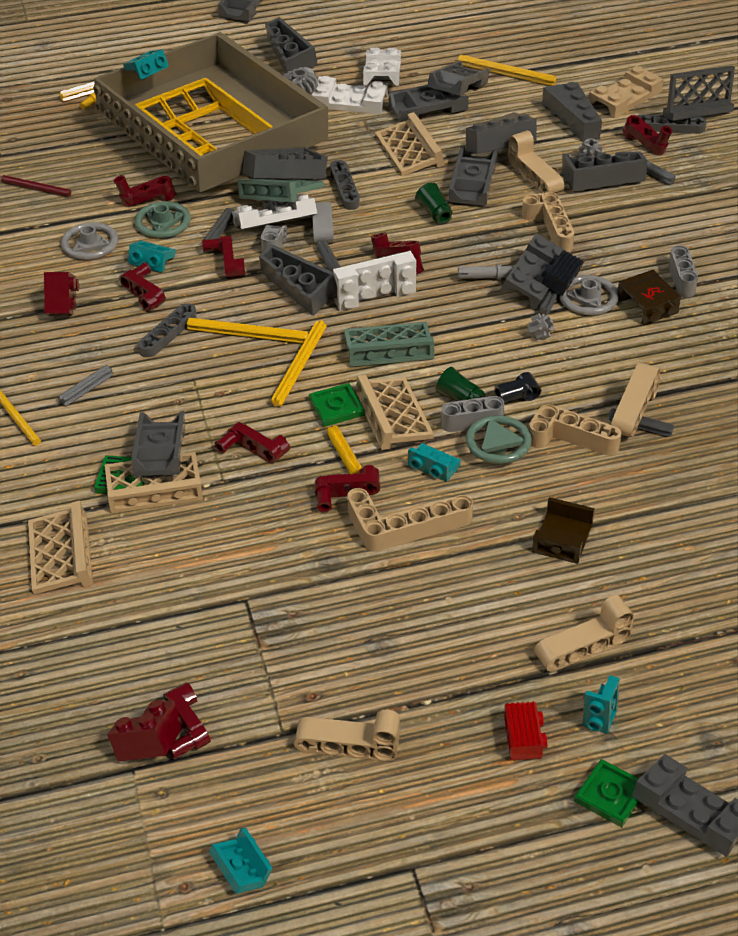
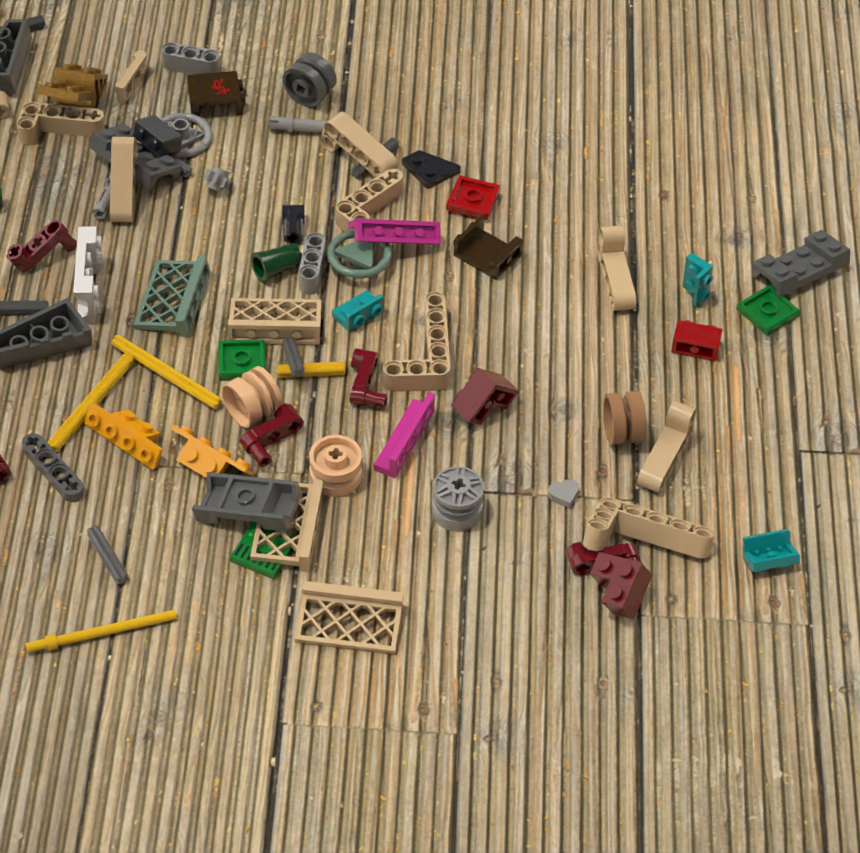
camera: 75 degrees left, 5 degrees up
(212, 412) = (203, 458): none -> light orange bracket
(215, 582) = (457, 498): none -> light grey wheel
(222, 360) = (127, 433): none -> light orange bracket
(227, 490) = (337, 463): none -> light nougat wheel
(241, 710) = (645, 525): none -> tan beam
(266, 669) = (564, 492): none -> light grey tile
(279, 412) = (251, 396): none -> light nougat wheel
(288, 533) = (405, 436): none -> dark pink fence
(344, 429) = (293, 357): none -> dark grey axle
(357, 568) = (482, 394): none -> dark red brick
(368, 684) = (624, 417): none -> medium nougat wheel
(495, 262) = (122, 187): none -> tan beam
(535, 452) = (396, 231): none -> dark pink fence
(591, 211) = (75, 85): none -> pearl gold piece
(629, 503) = (473, 197): none -> red plate
(636, 244) = (131, 77): none -> tan plate
(646, 355) = (296, 124): none -> light grey pin
(652, 464) = (429, 168): none -> black wing
(699, 343) = (309, 79): none -> dark grey wheel

